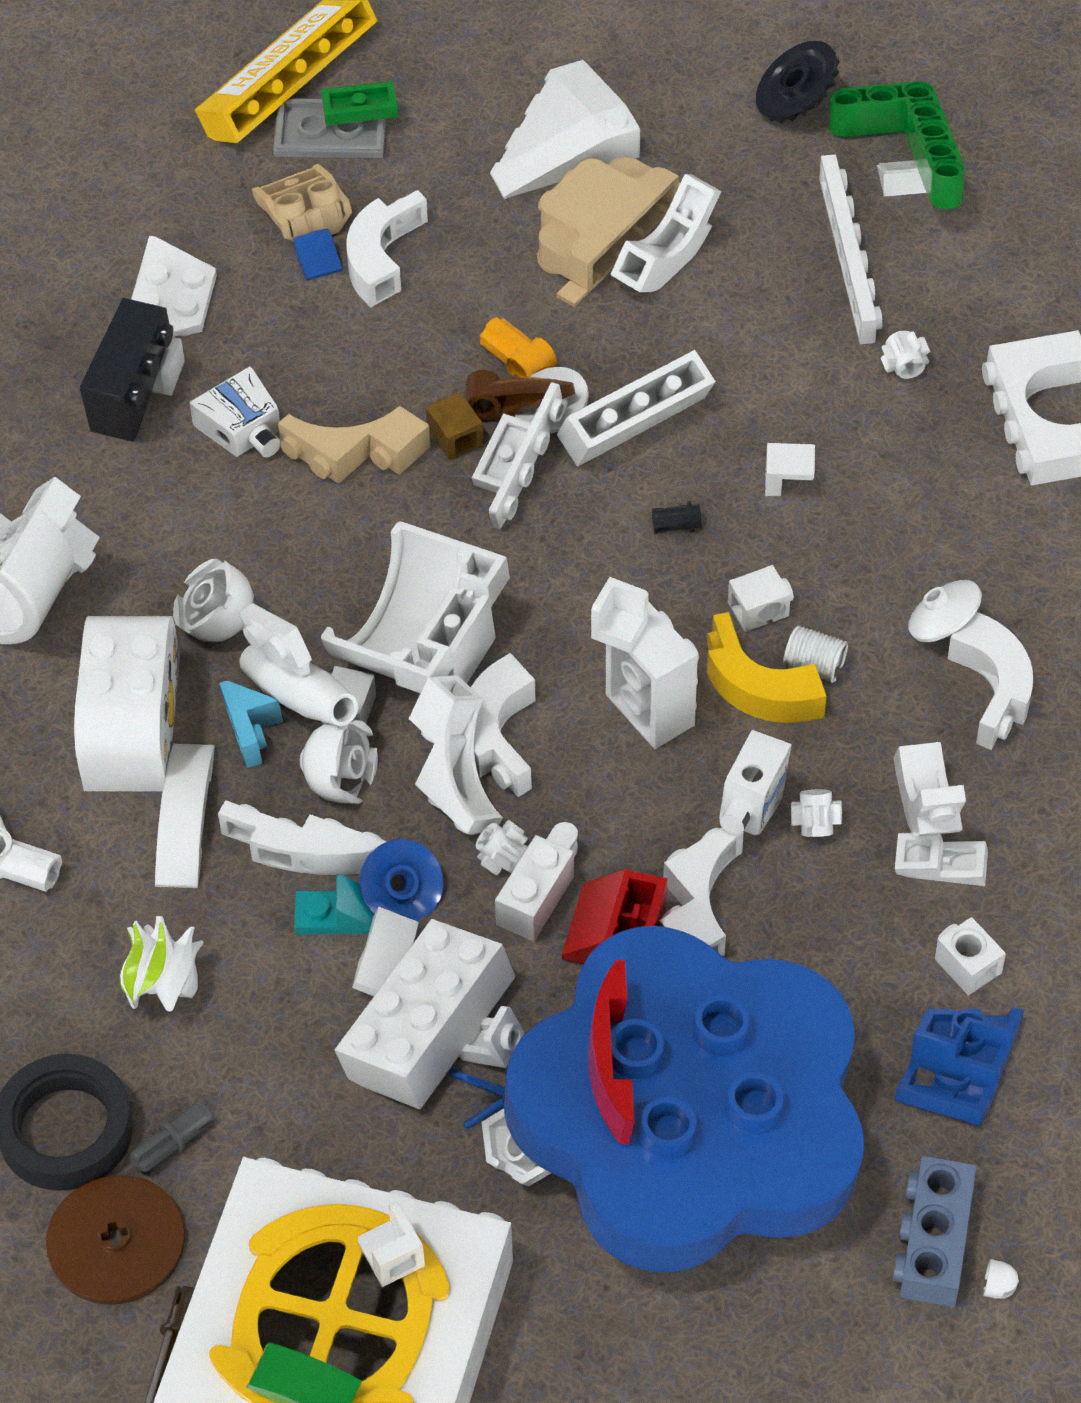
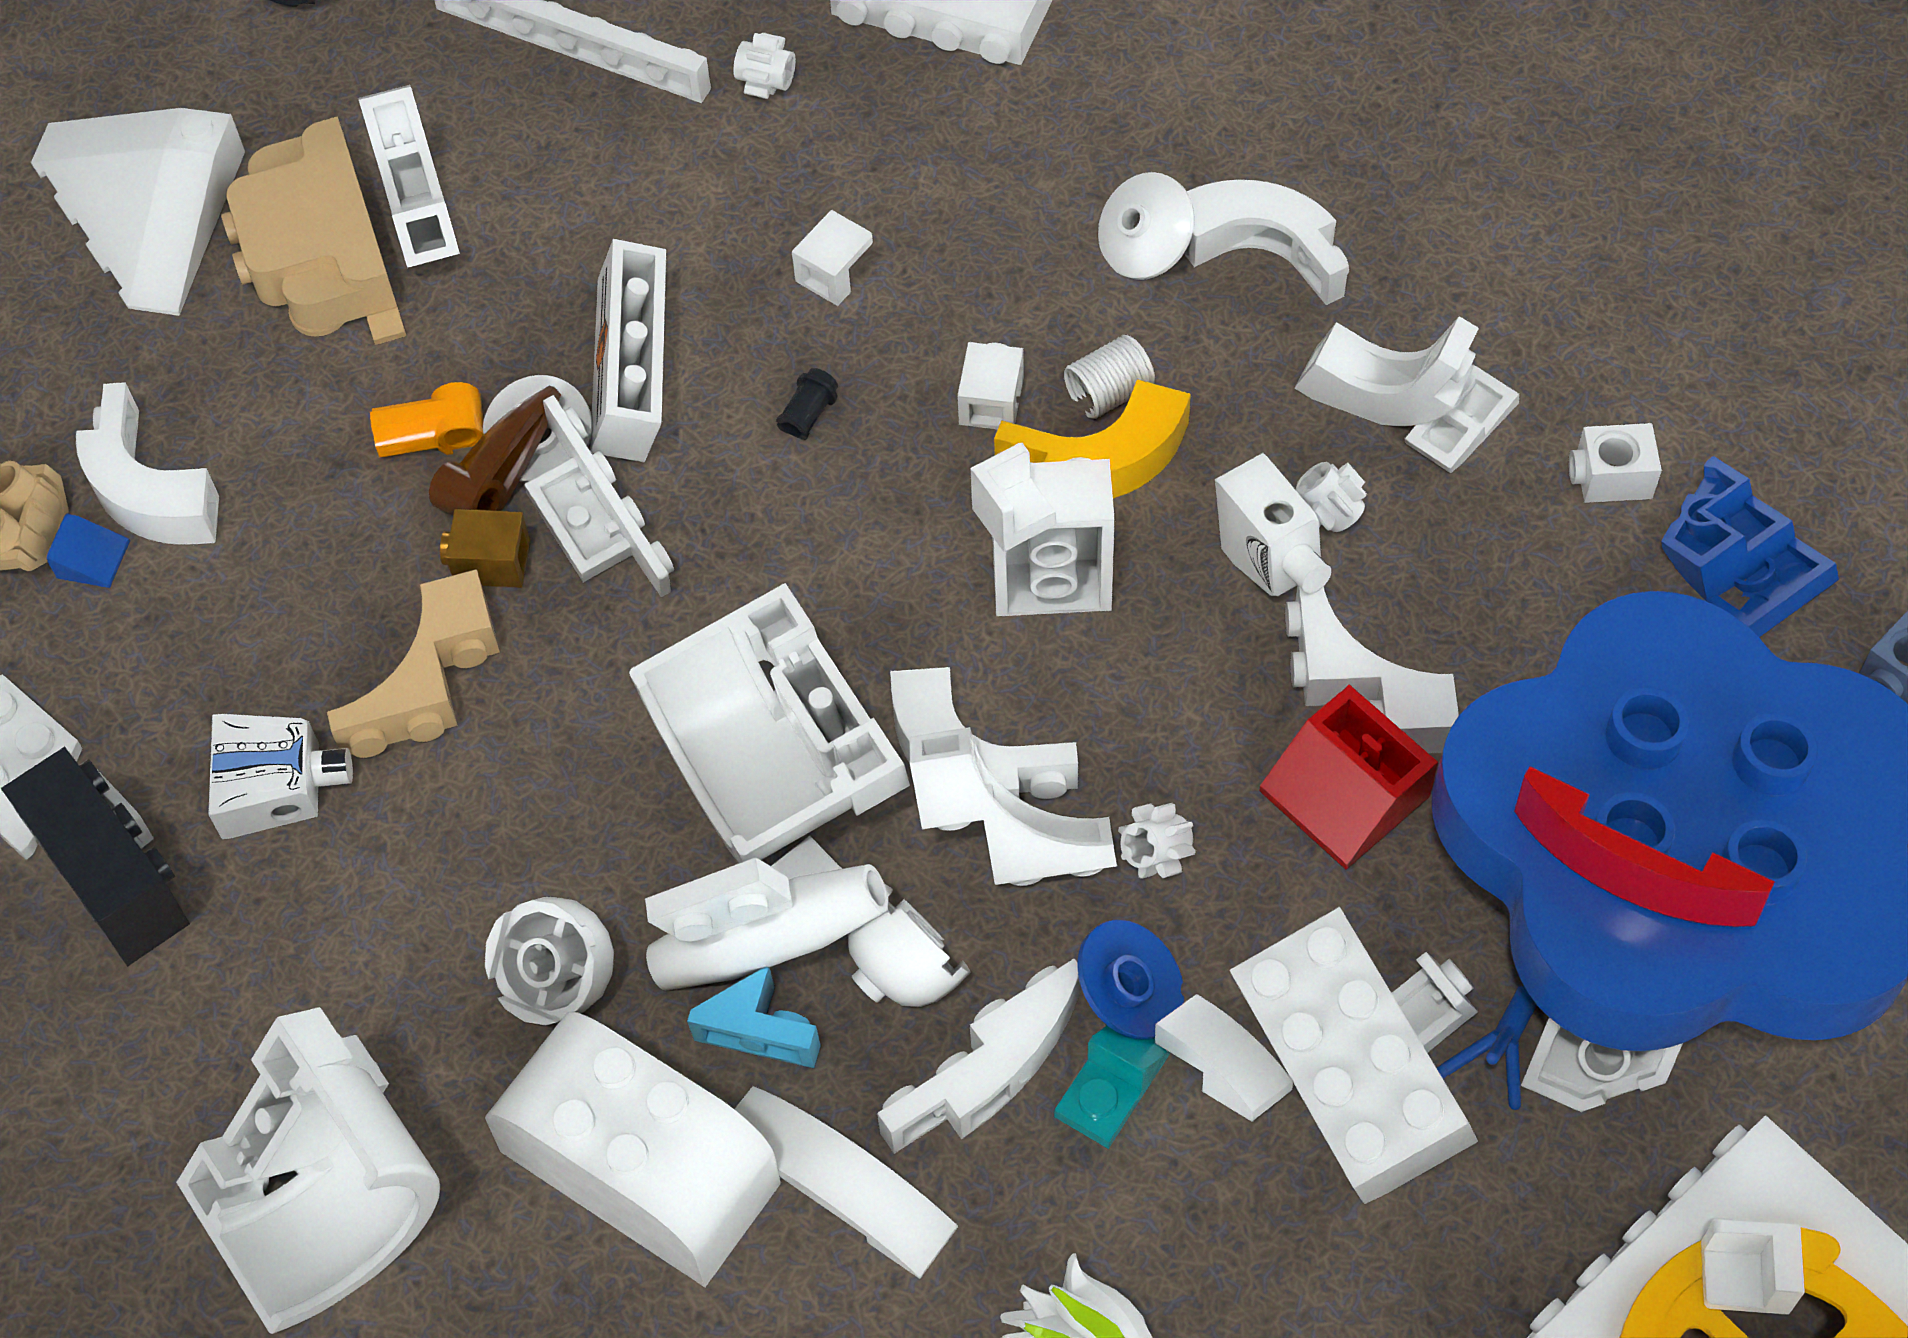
camera: 55 degrees left, 5 degrees up
(538, 882) = (1236, 828): white brick -> none

